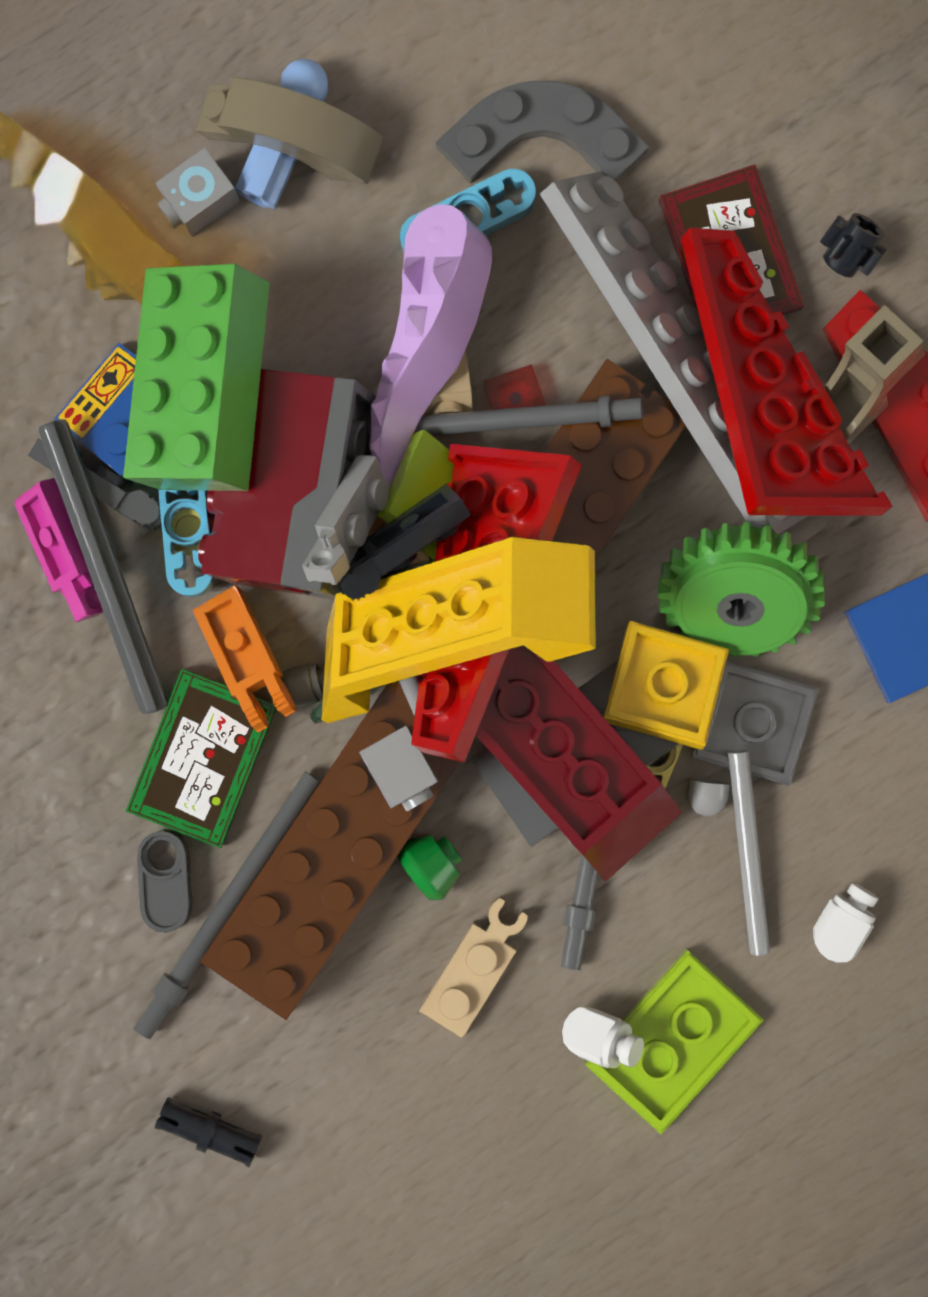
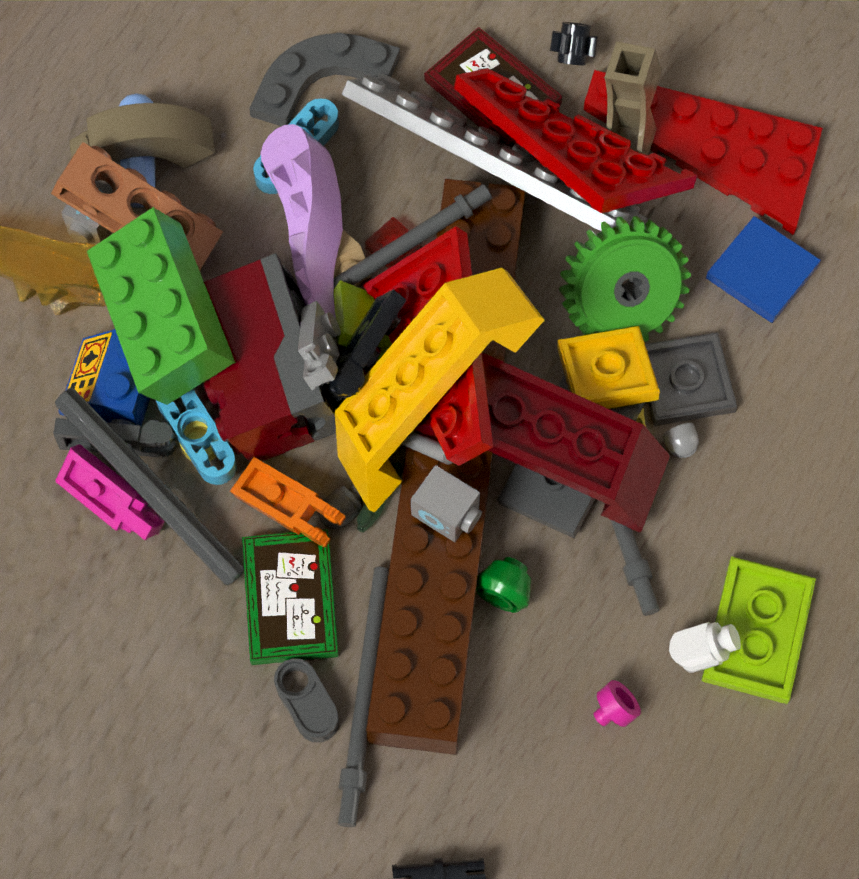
camera: 25 degrees left, 20 degrees down
(179, 169) = (113, 210): none -> nougat brick
(472, 972) = (579, 652): tan plate -> none
(479, 1051) = (616, 705): none -> dark pink tile
(749, 852) = (735, 465): light grey bar -> none
(845, 924) = (833, 480): white arm -> none

